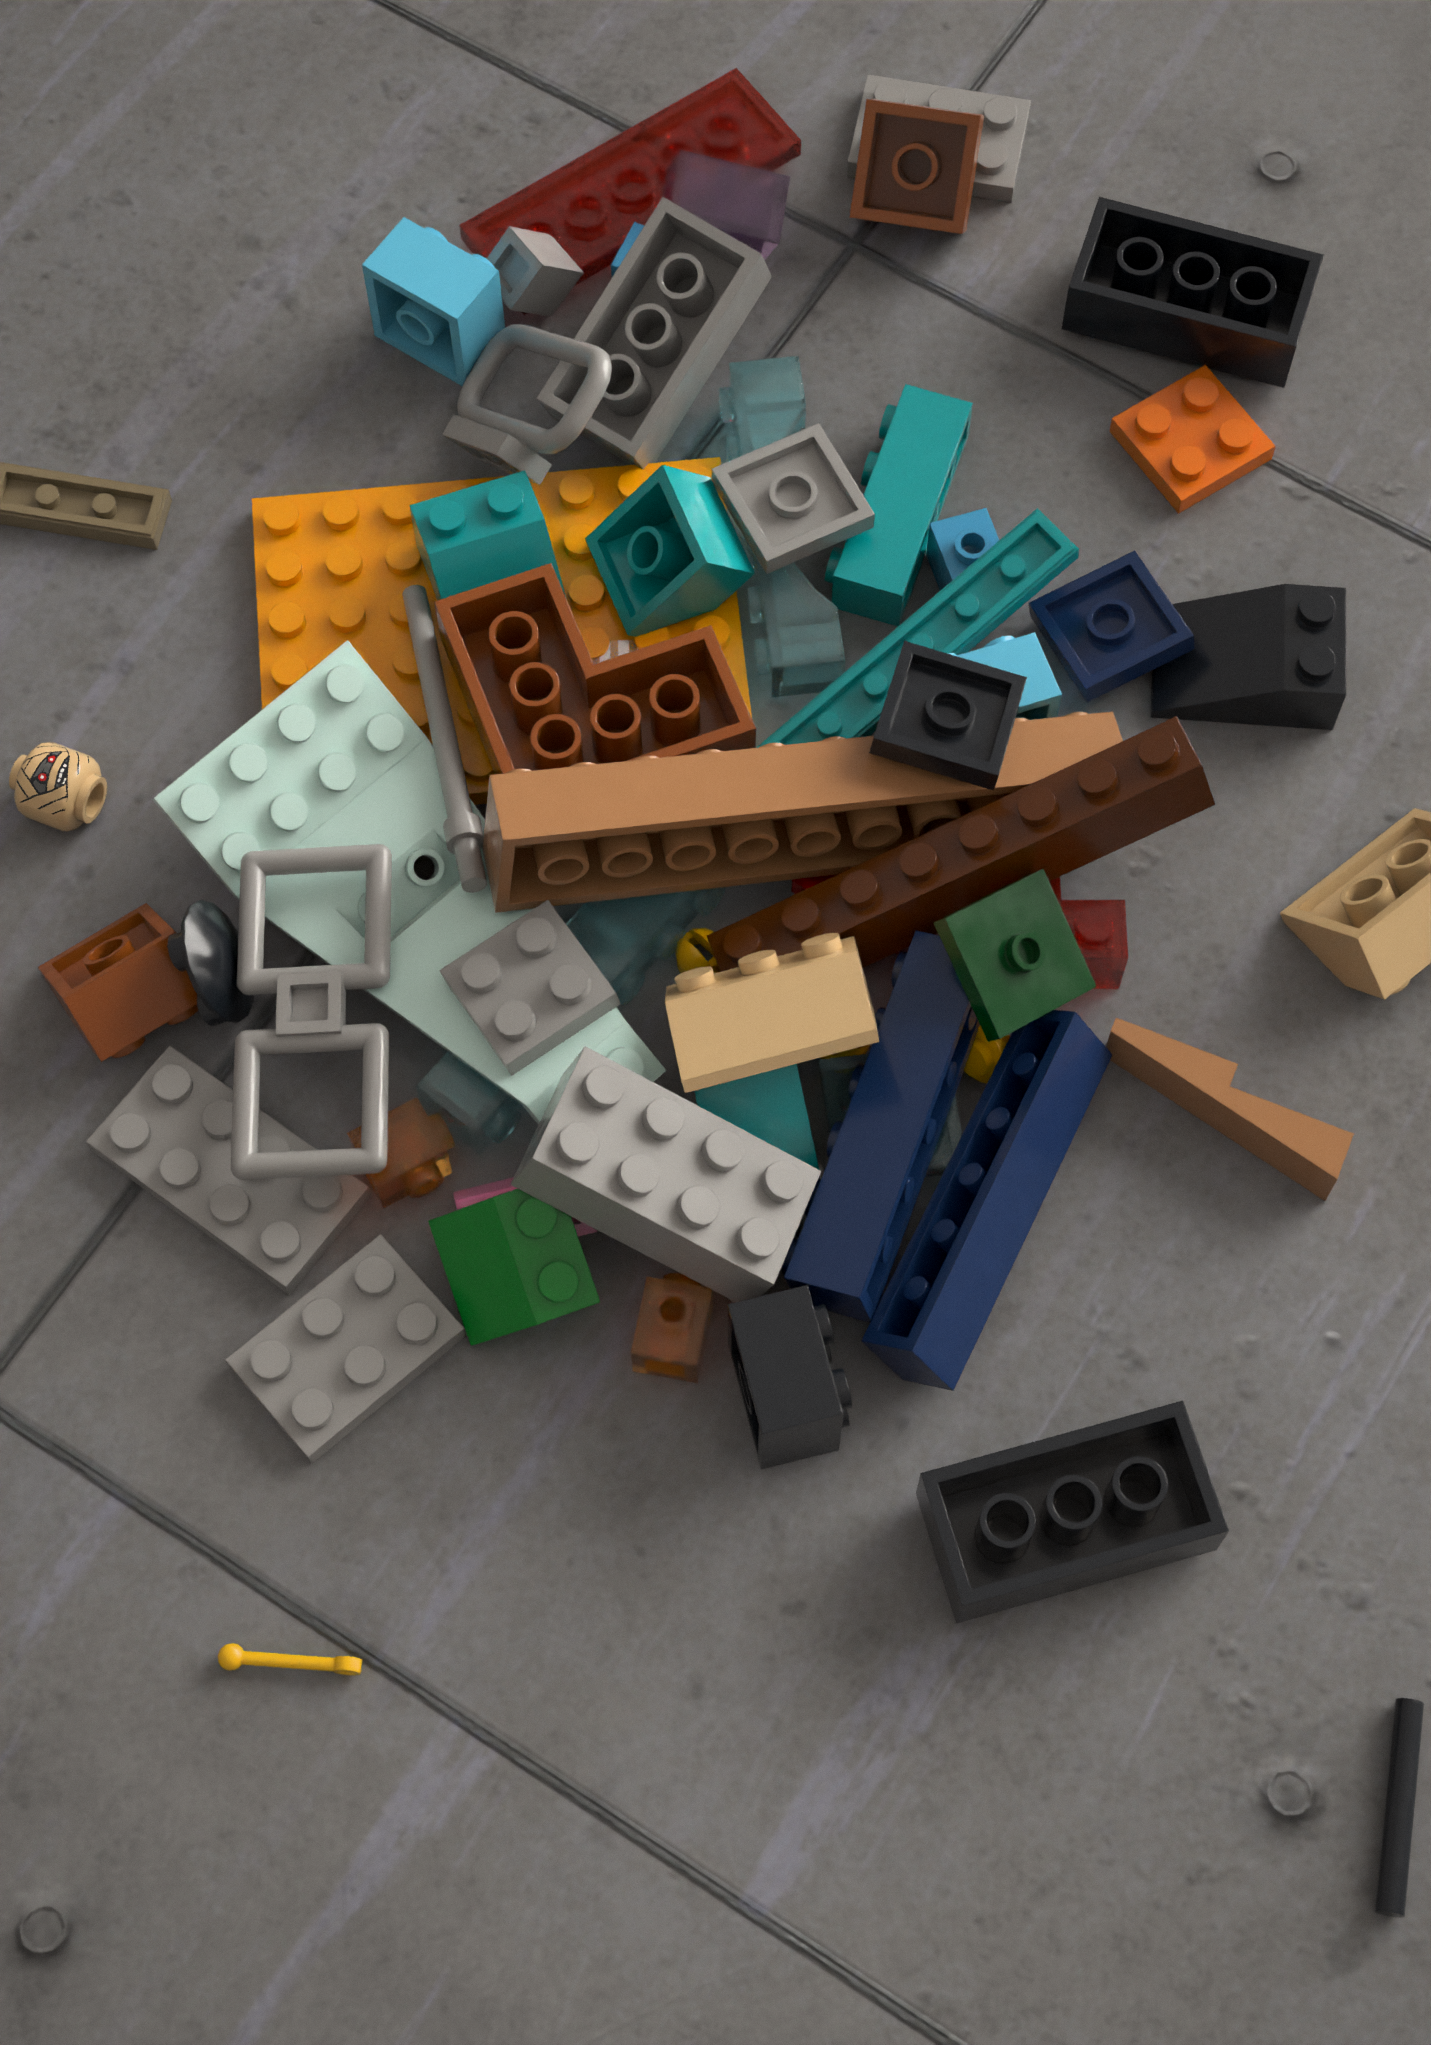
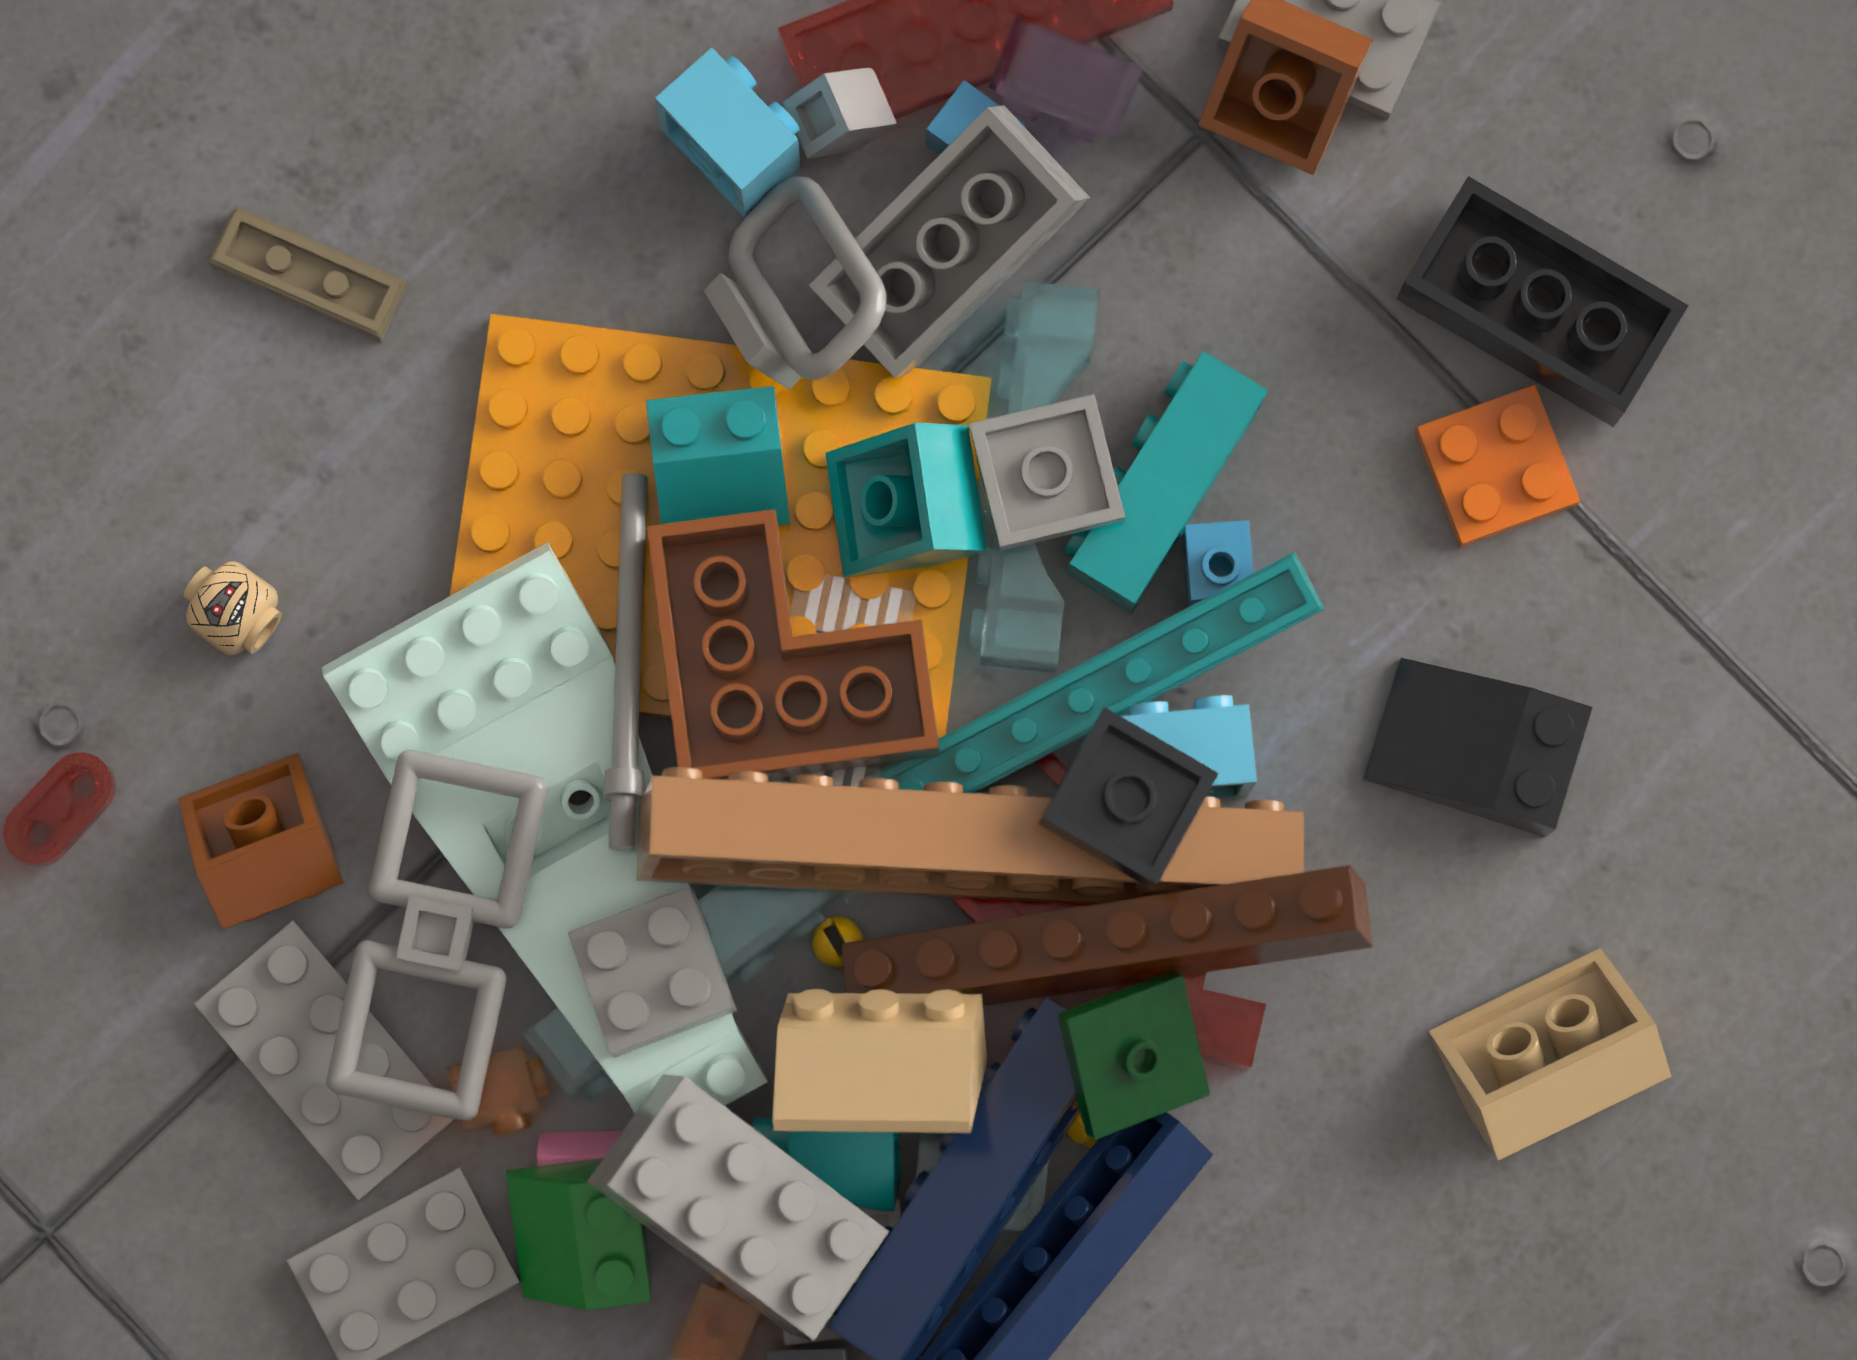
camera: 10 degrees right, 15 degrees up
(209, 955) = (347, 854): black dish -> none
(1111, 626) = (1345, 678): dark blue plate -> none
(1200, 1083) = (1297, 1205): medium nougat slope -> none

